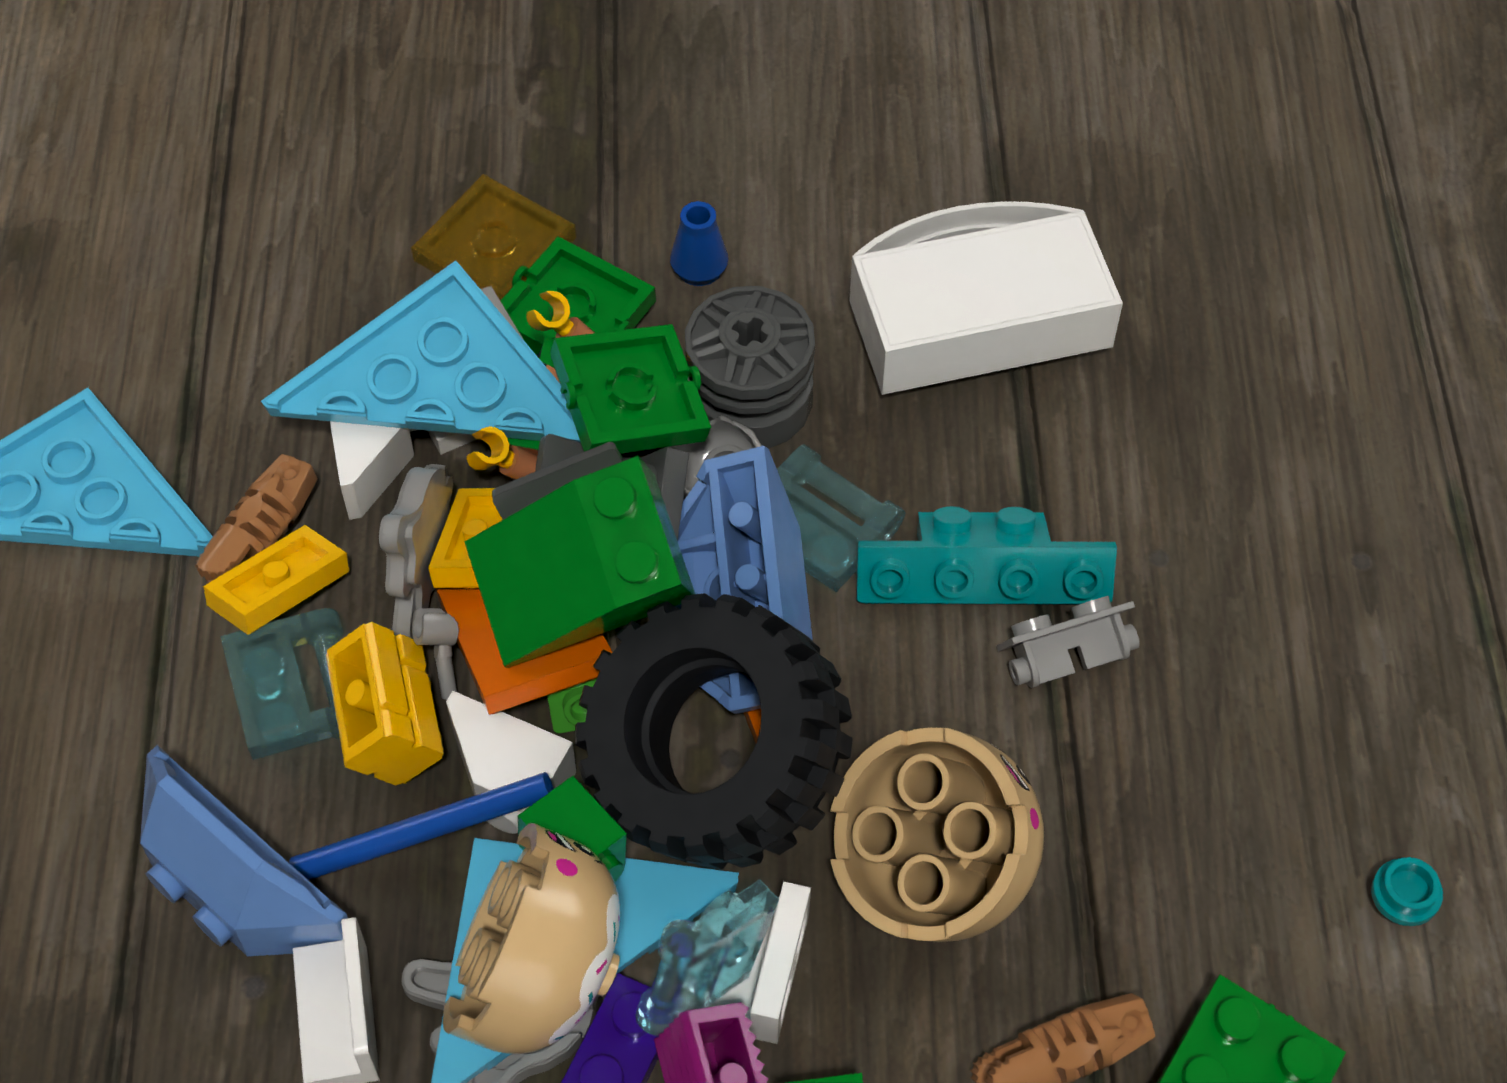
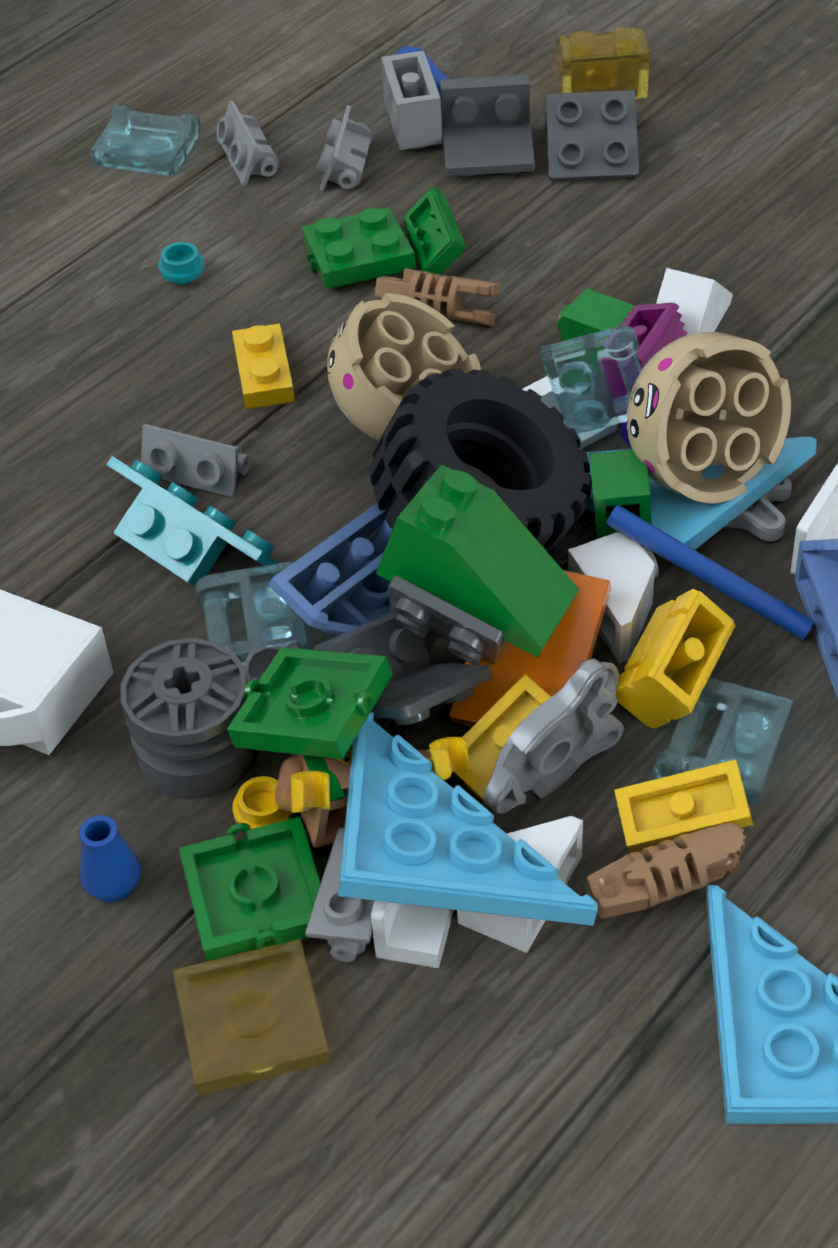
camera: 135 degrees left, 10 degrees down
(1149, 817) = (263, 366): none -> yellow plate

